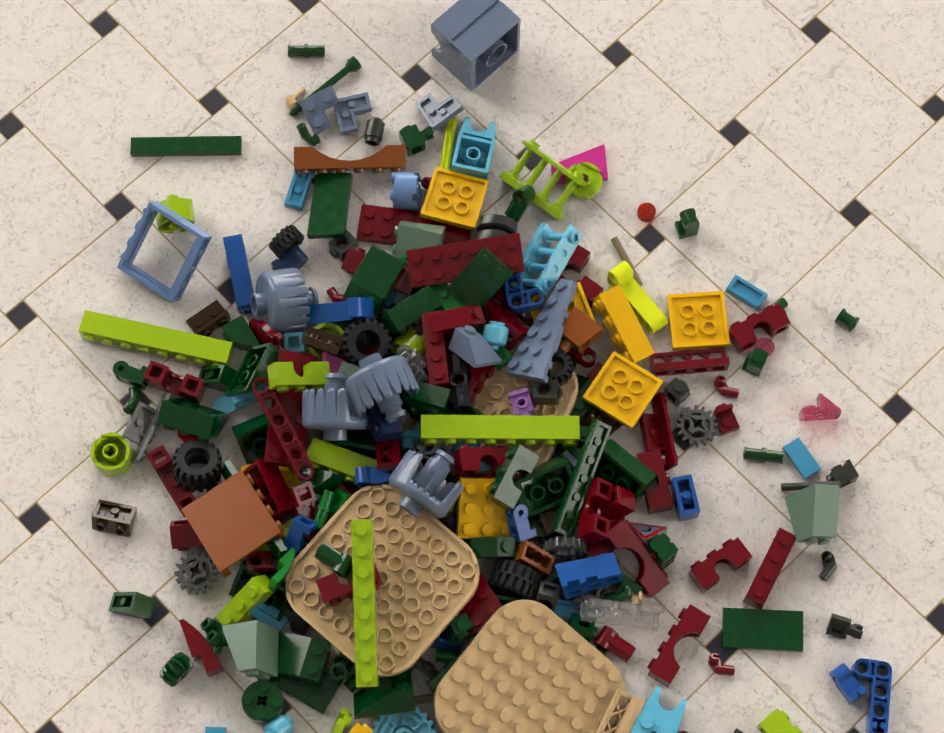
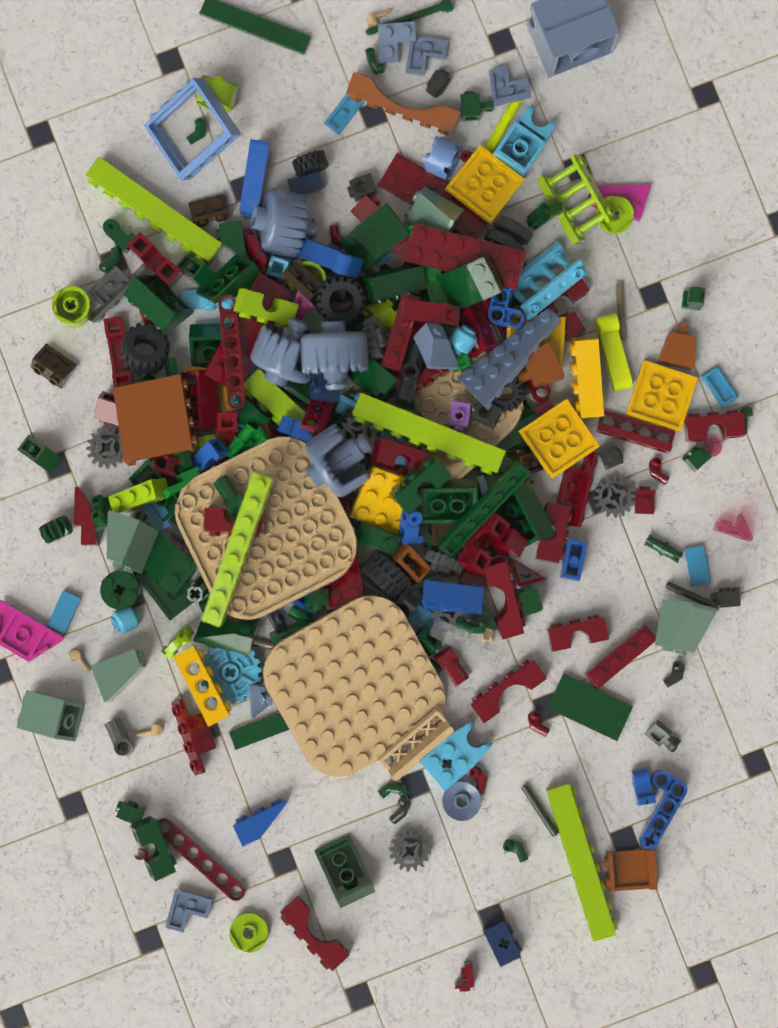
camera: 20 degrees right, 15 degrees up
(172, 255) = (200, 131): none -> dark green arm
(330, 205) = (365, 143): dark green tile -> none
(646, 212) = (661, 269): clear red tile -> none
(694, 273) = (679, 349): none -> dark orange torso

